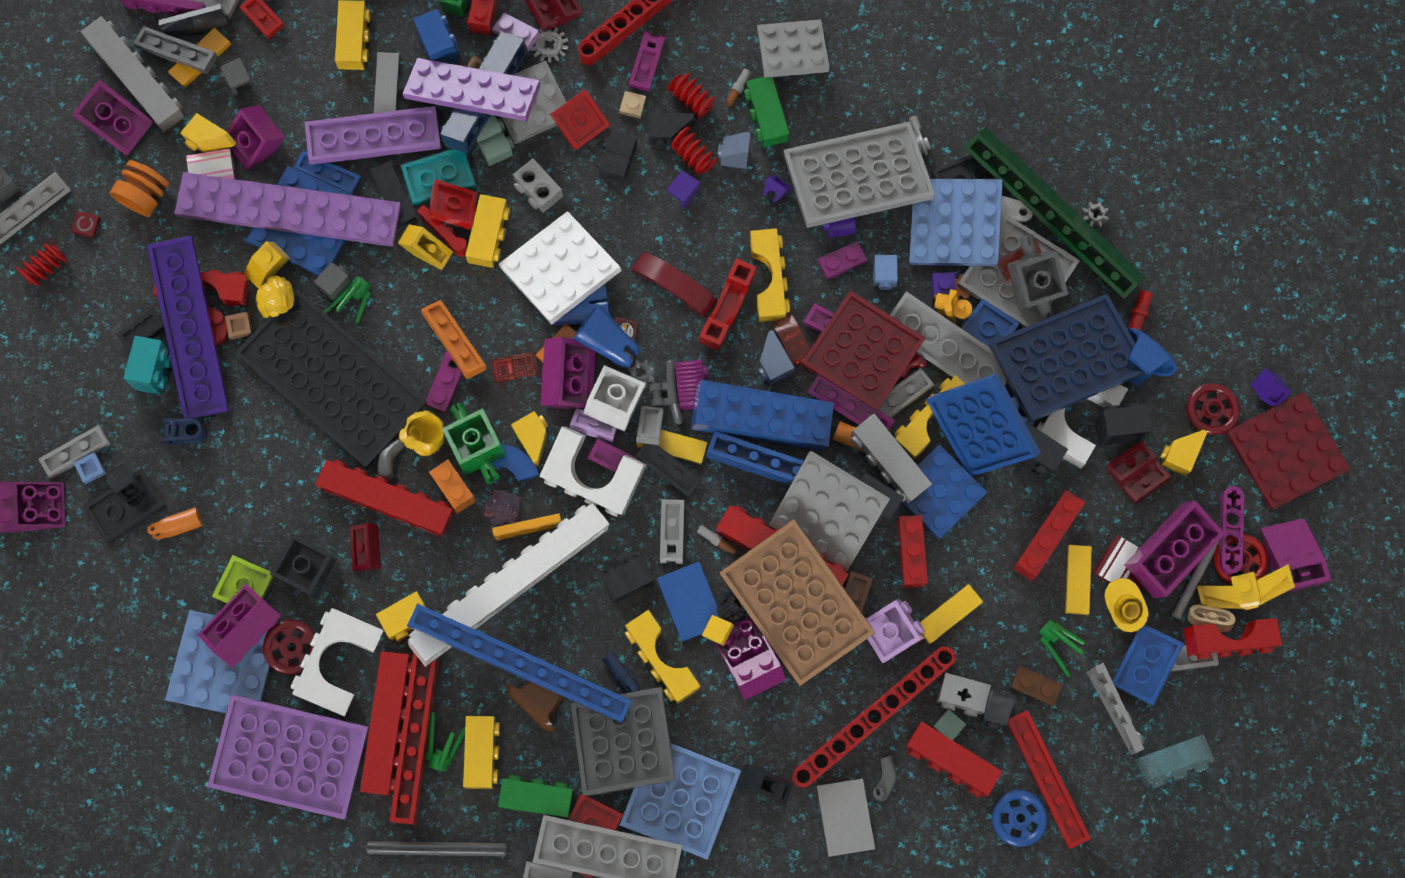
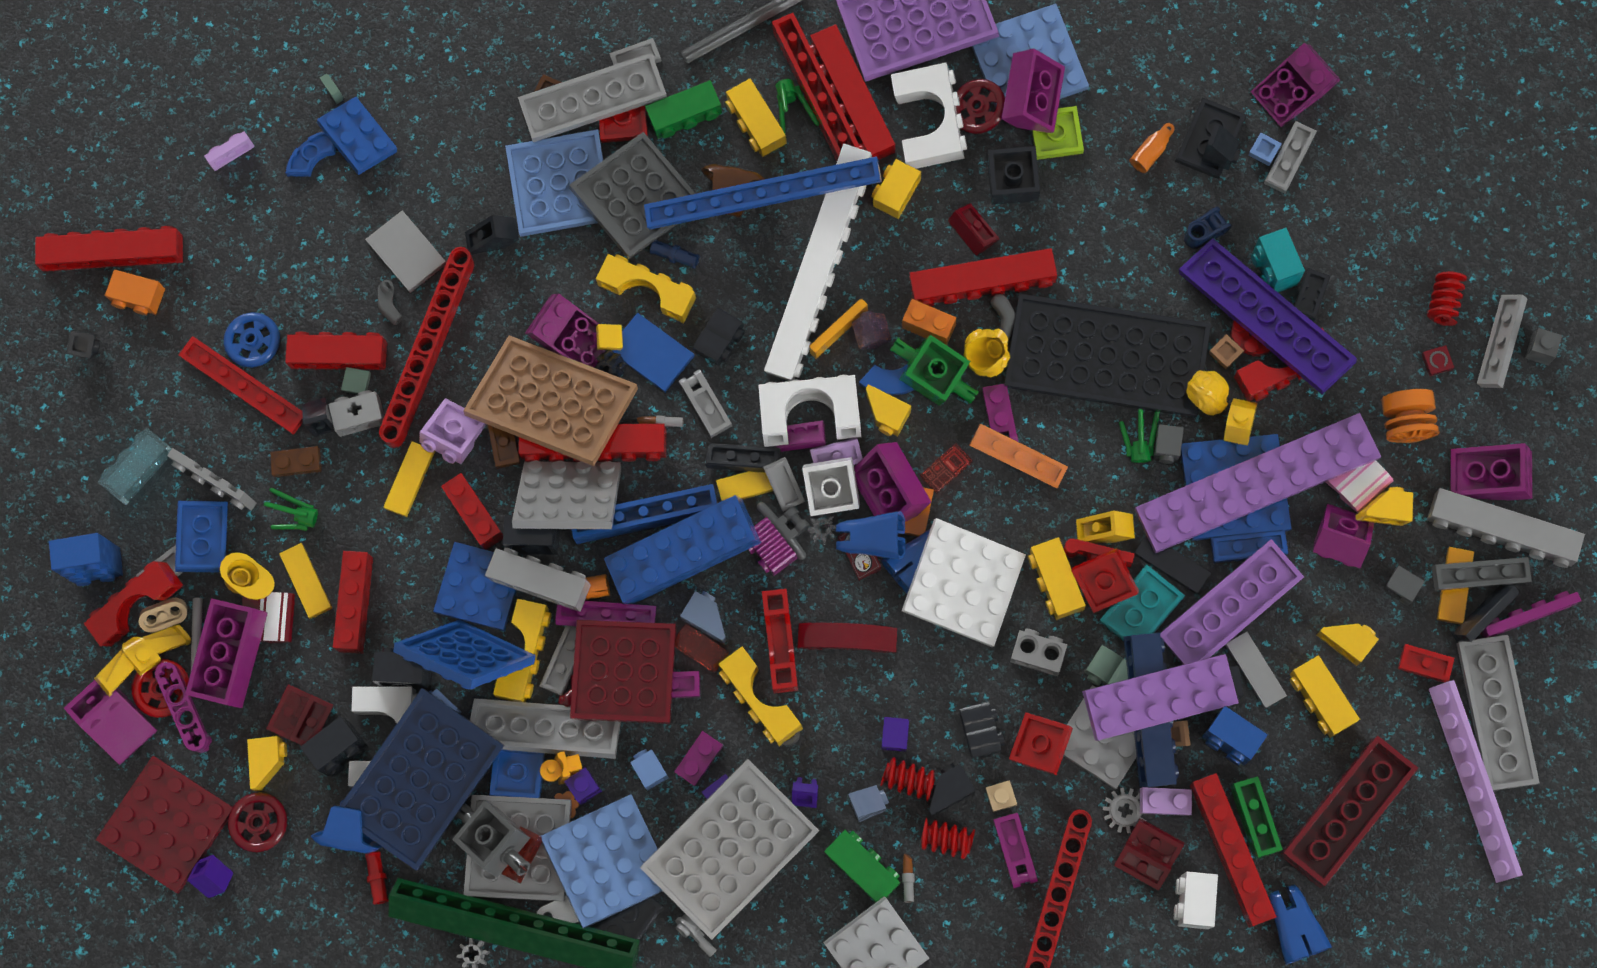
camera: 160 degrees right, 0 degrees up
(303, 61) = (1350, 640): none -> yellow slope
(1256, 693) = (86, 559): none -> blue brick

